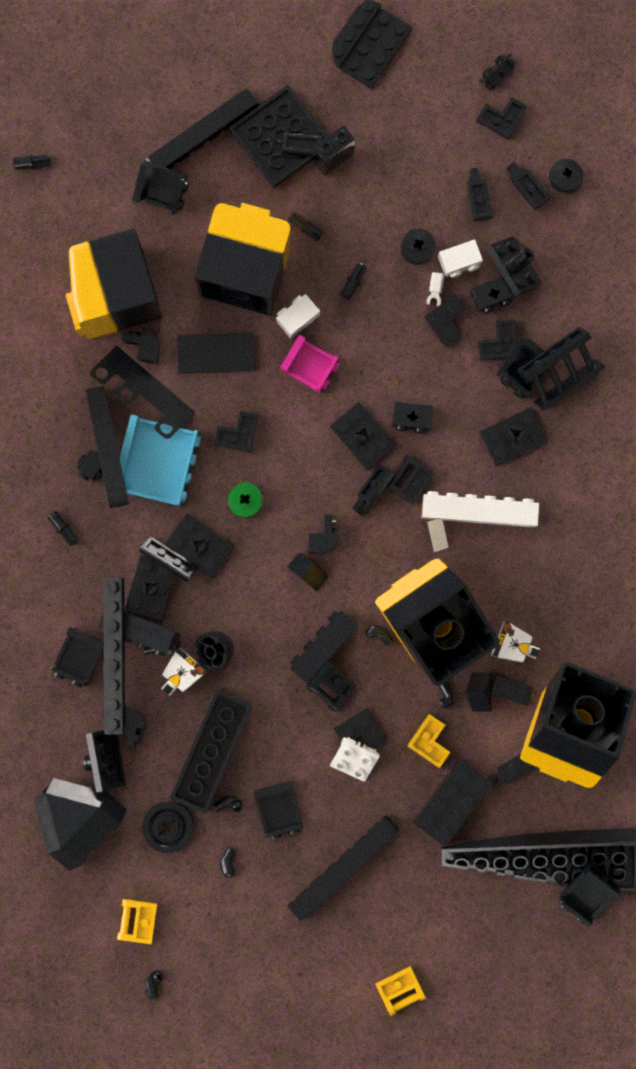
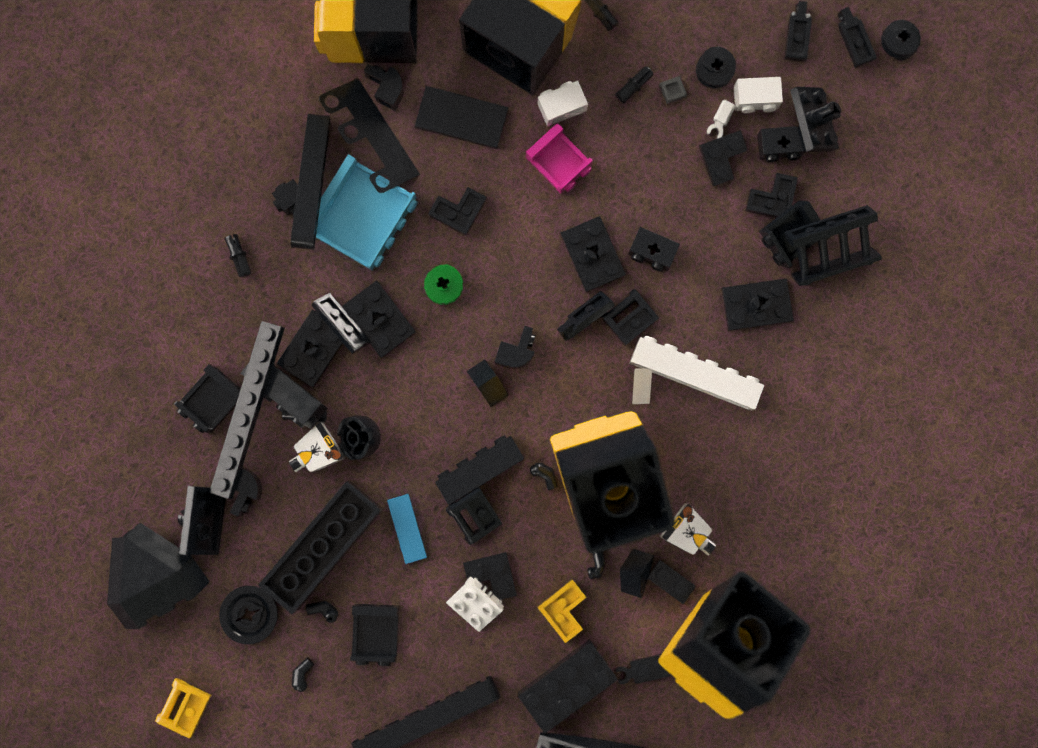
camera: 20 degrees right, 0 degrees up
(278, 714) = (407, 528): none -> dark azure tile
(387, 275) = (673, 90): none -> dark grey tile

